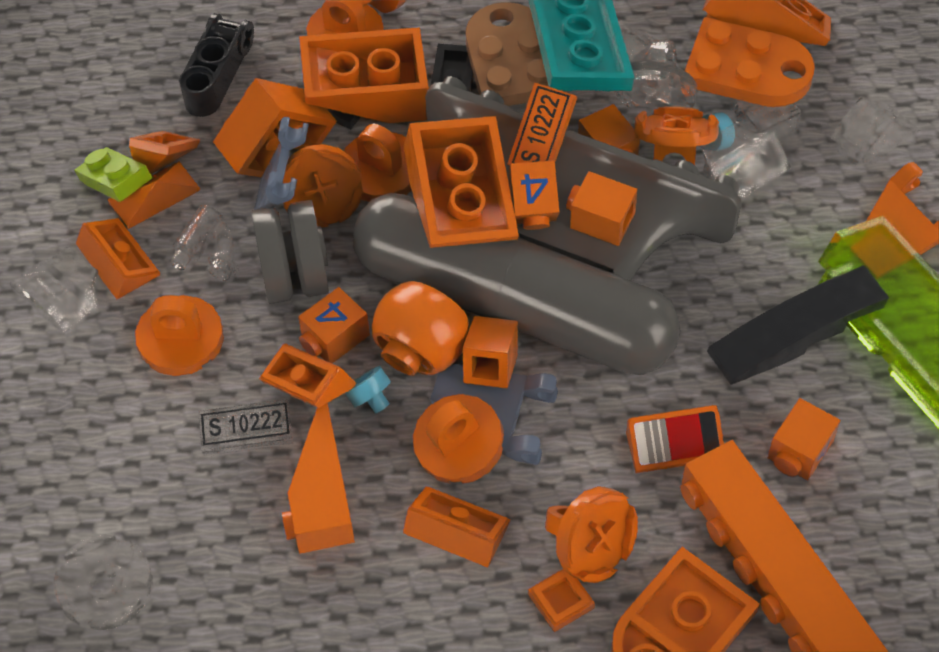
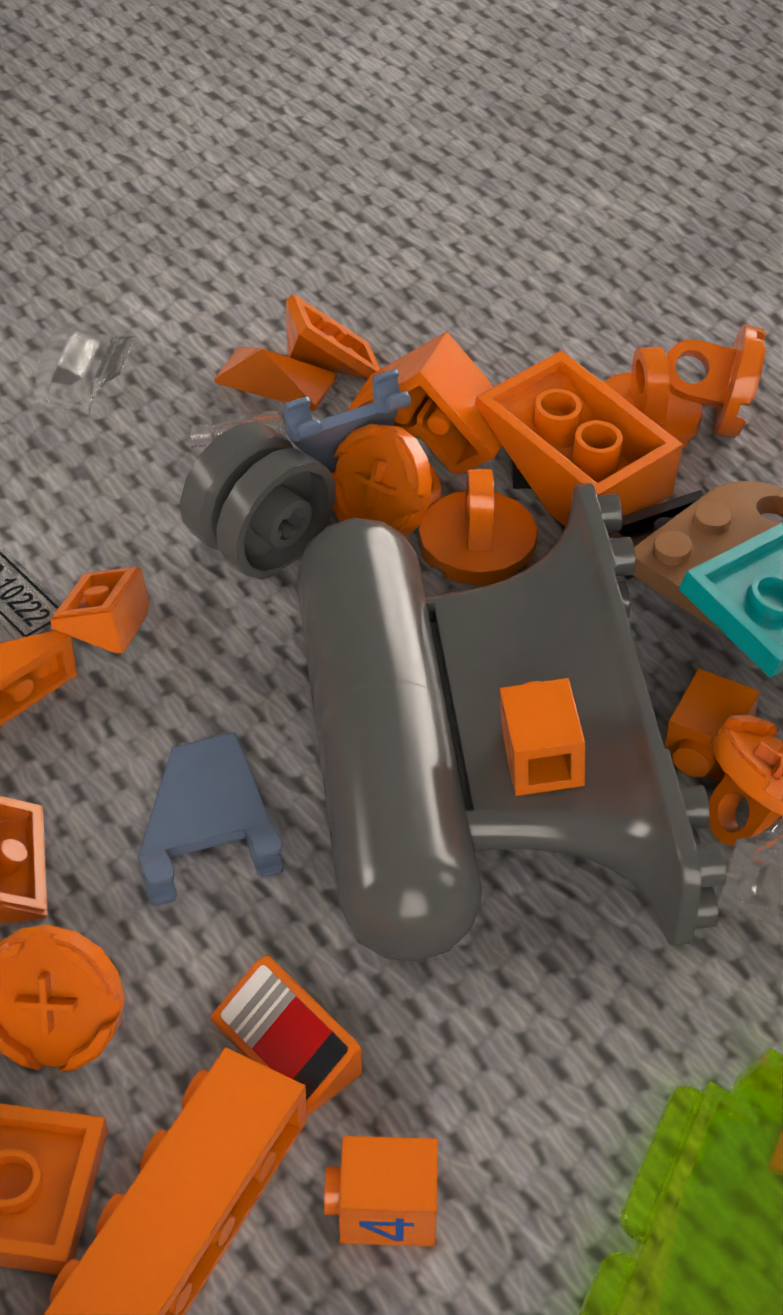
camera: 55 degrees right, 10 degrees down
(113, 173) = (257, 324): lime plate -> none
(115, 256) = (170, 389): orange slope -> none
(179, 334) = (99, 482): orange tile -> none
(214, 64) = (495, 323): black piece -> none
(333, 326) = (199, 600): orange brick -> none
(369, 390) = (135, 677): medium azure tile -> none
(419, 329) = (236, 668): orange wheel -> none
(458, 439) = (120, 791): orange tile -> none
(460, 181) = (445, 567): orange slope -> none
(490, 352) = (265, 758): orange brick -> none
(534, 193) = (496, 649): orange brick -> none
(542, 125) = (602, 609): orange tile -> none
(796, 324) = (589, 1089): black slope -> none

